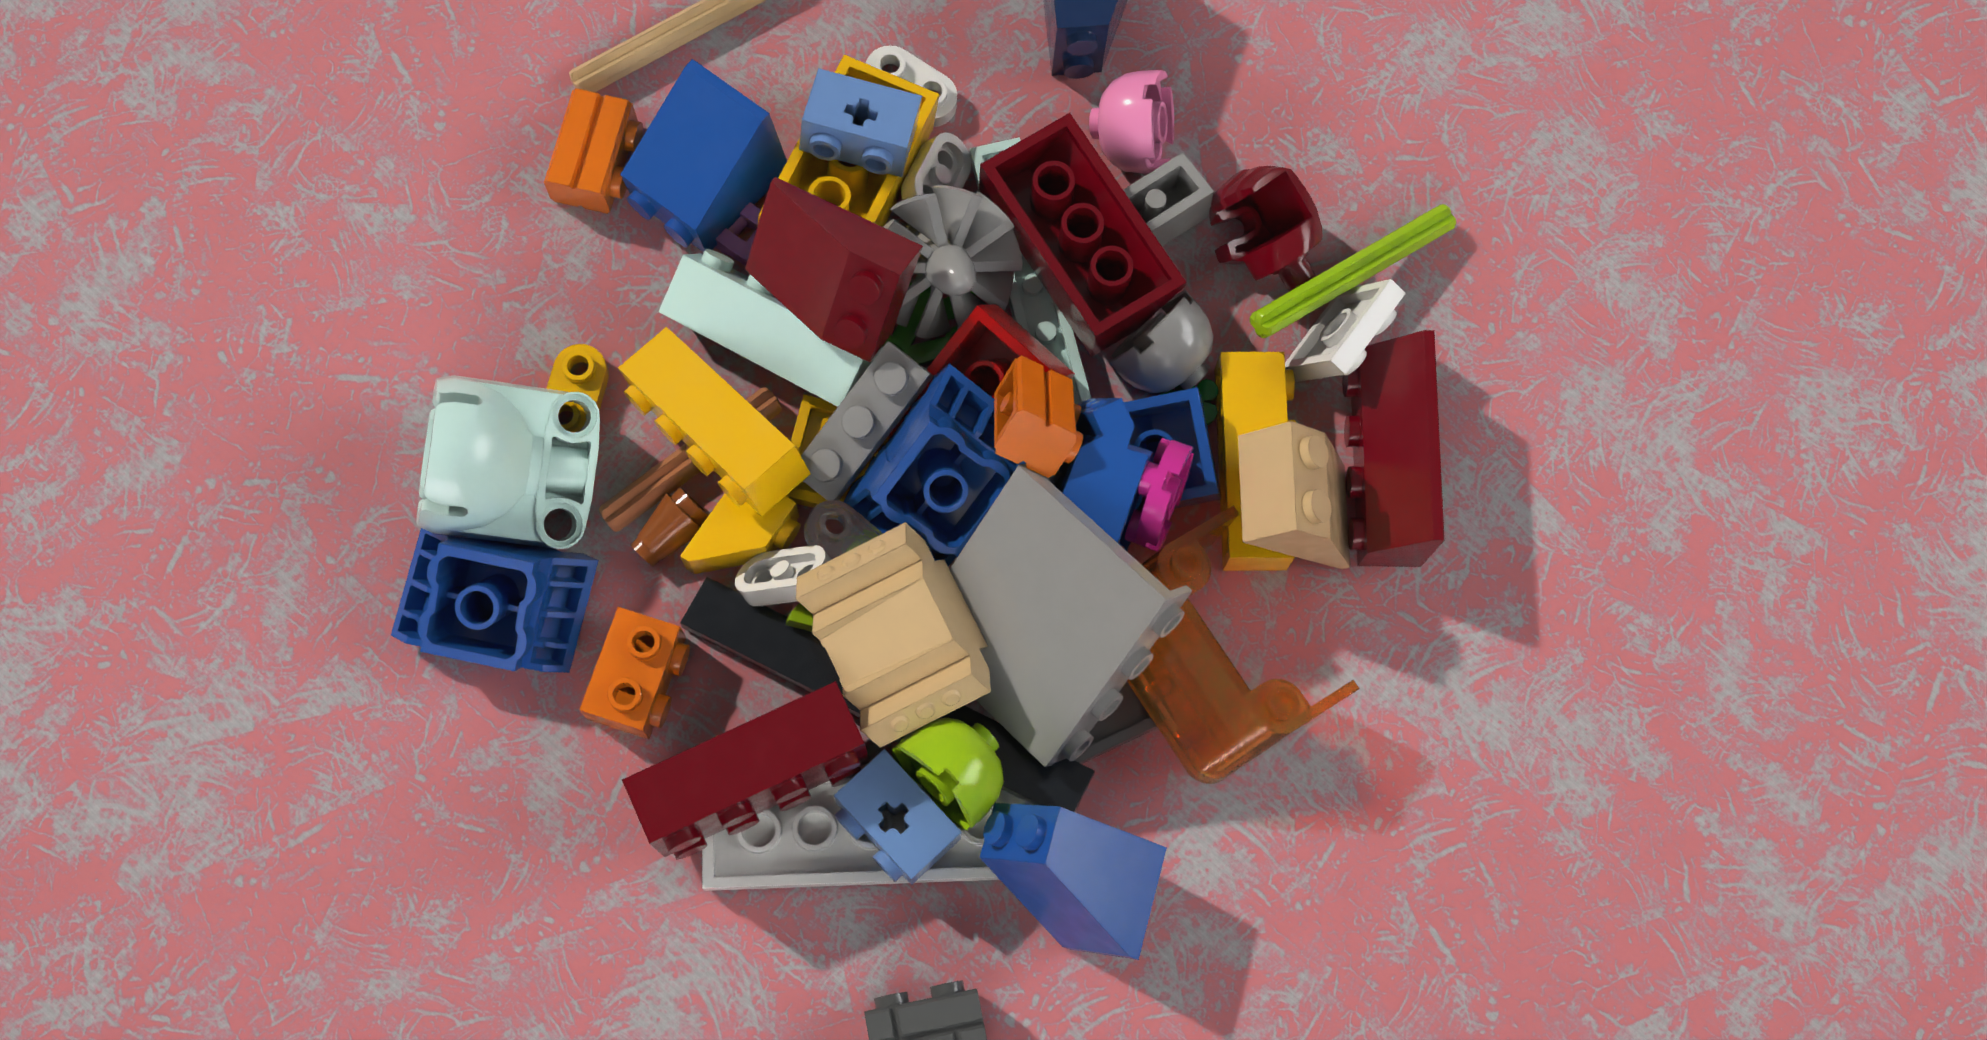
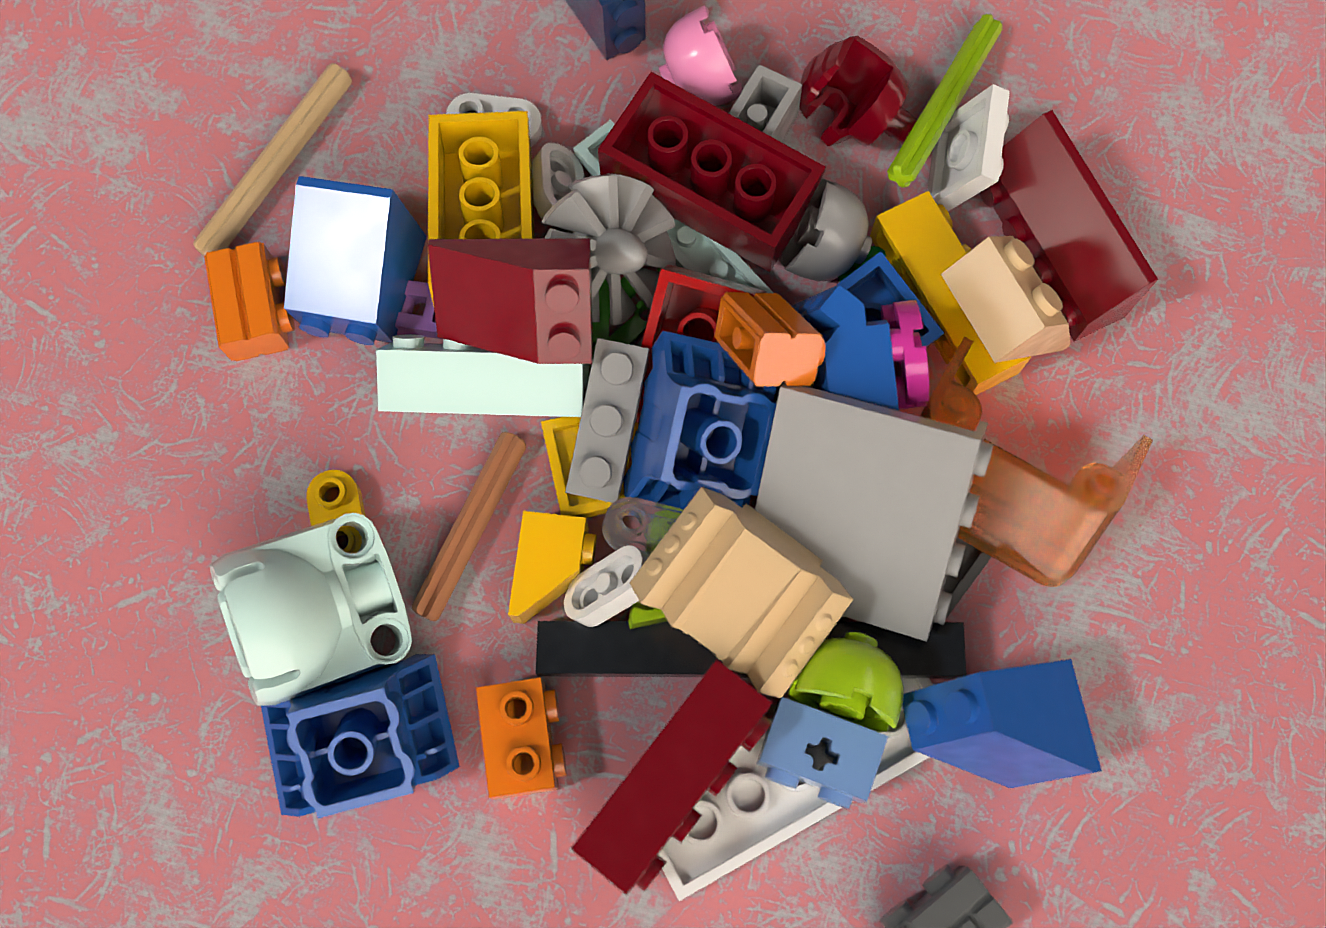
camera: 20 degrees left, 0 degrees up
(669, 527) = (483, 593): dark orange cone -> none
(714, 421) = (478, 482): yellow brick -> none
(859, 123) = (476, 161): medium blue brick -> none

